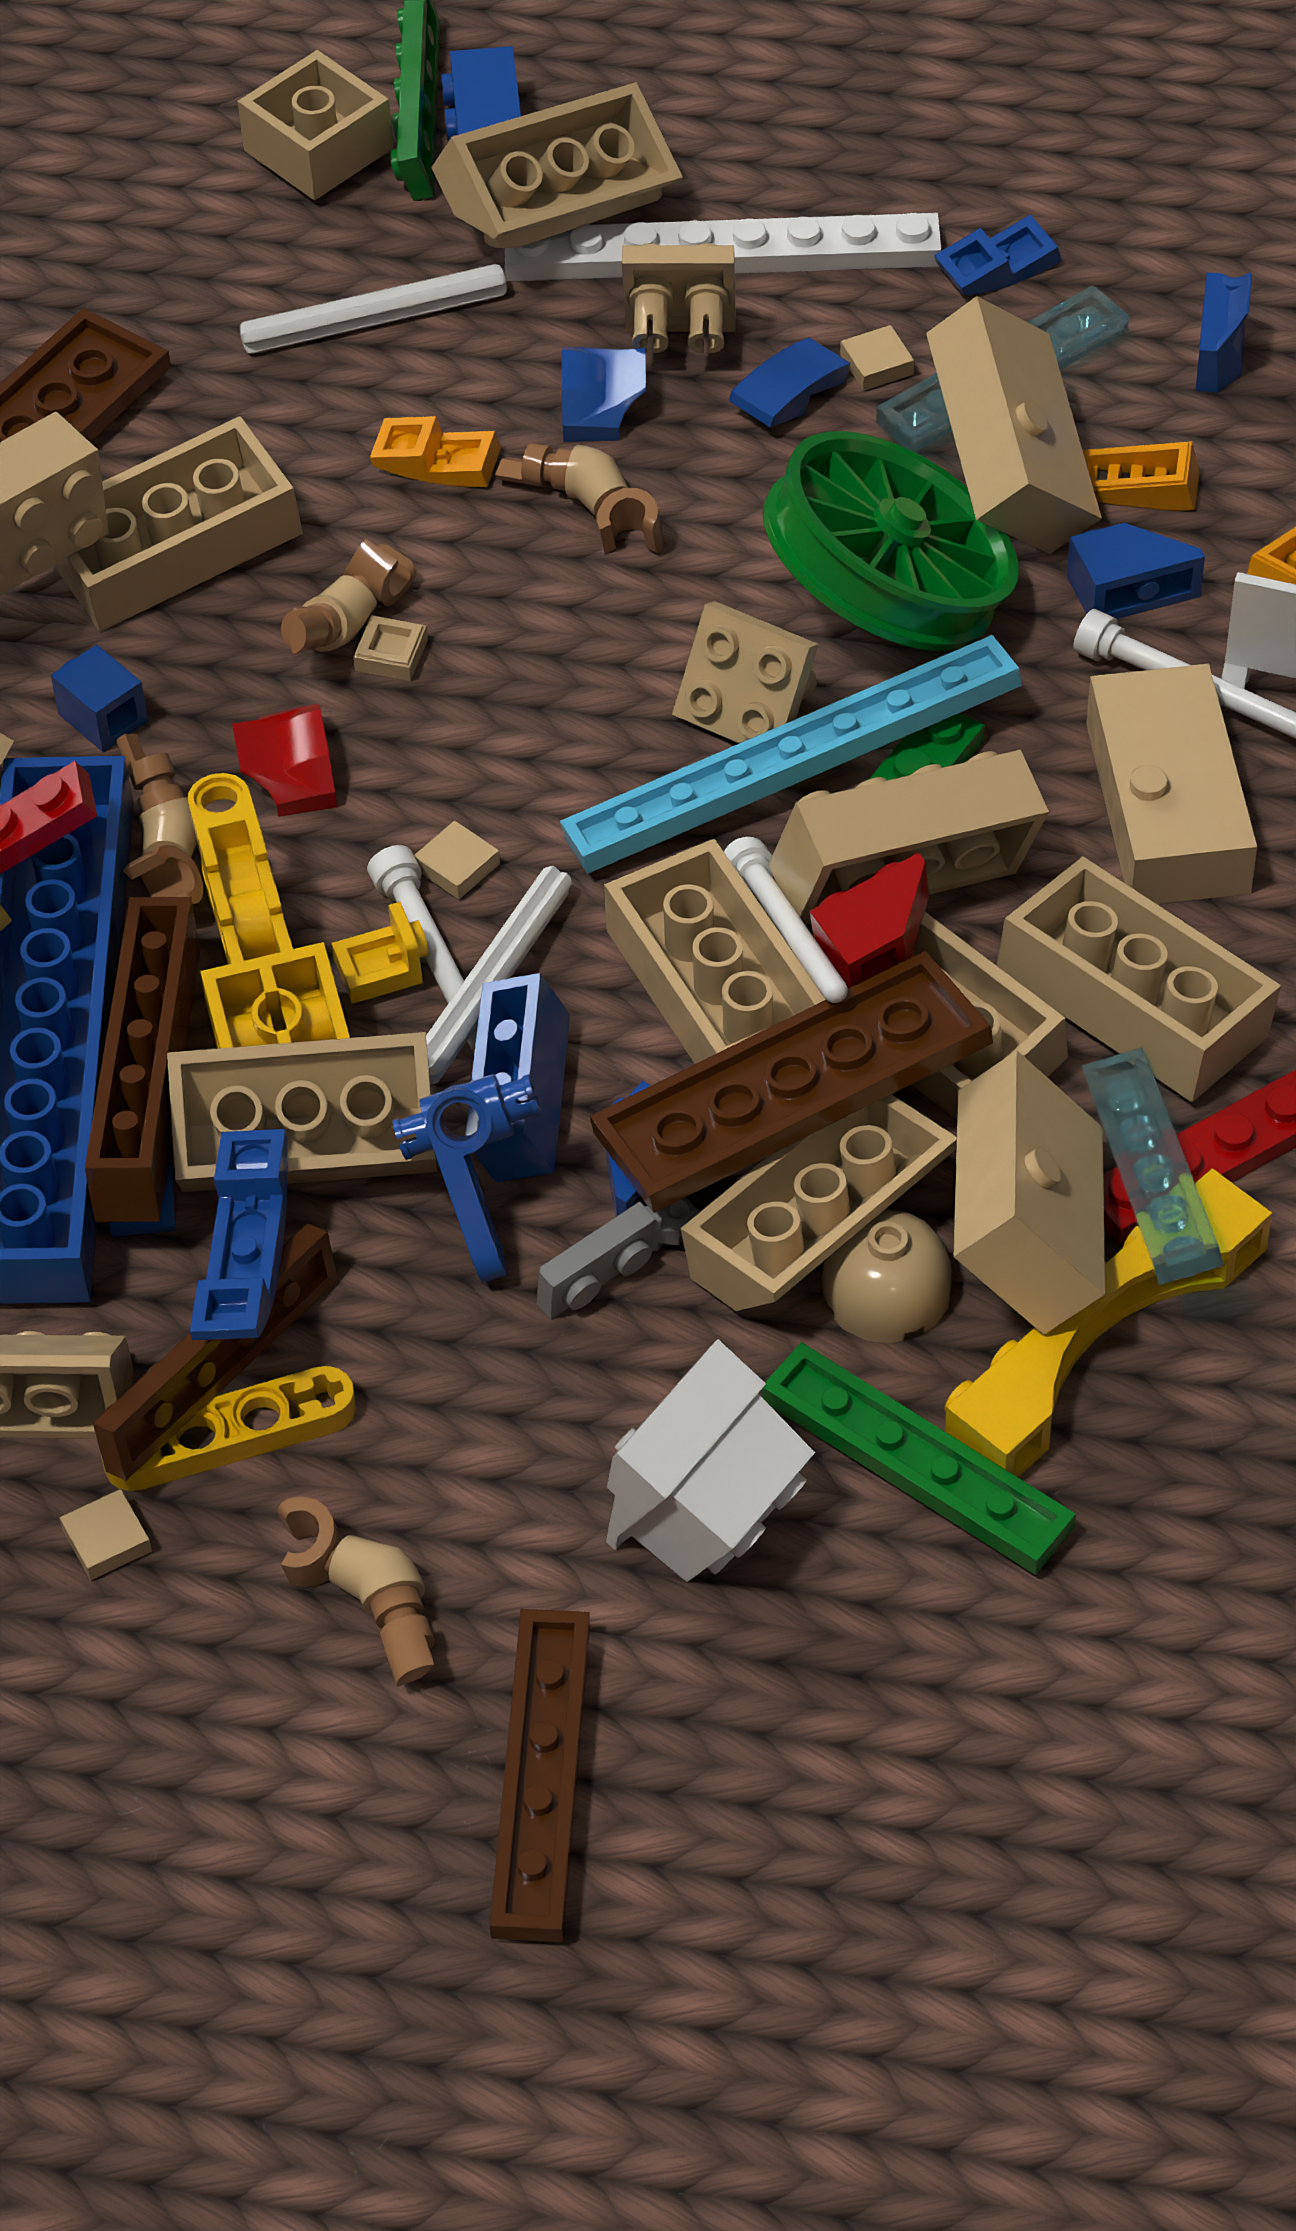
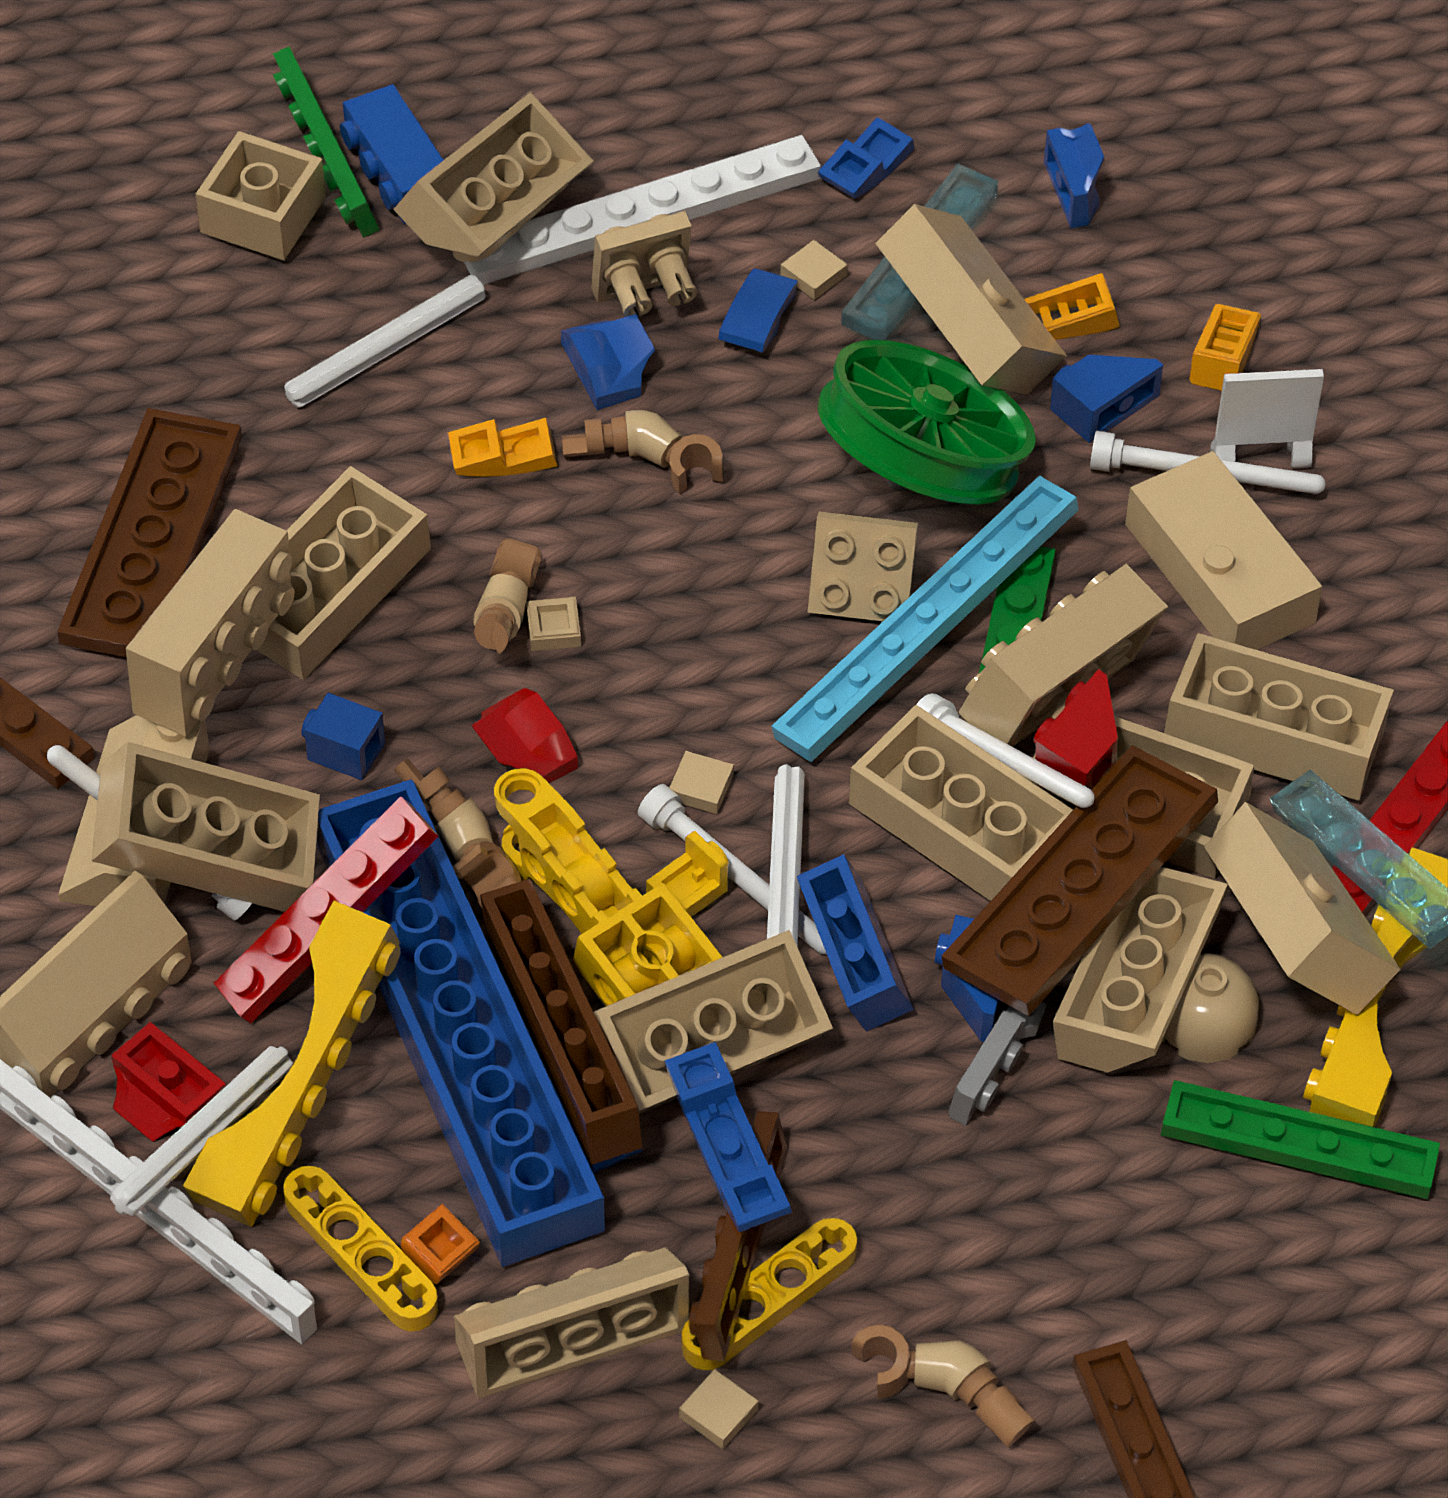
camera: 25 degrees left, 0 degrees up
(497, 1110) = (876, 979): blue piece -> none
(705, 1468) = (1175, 1202): white piece -> none

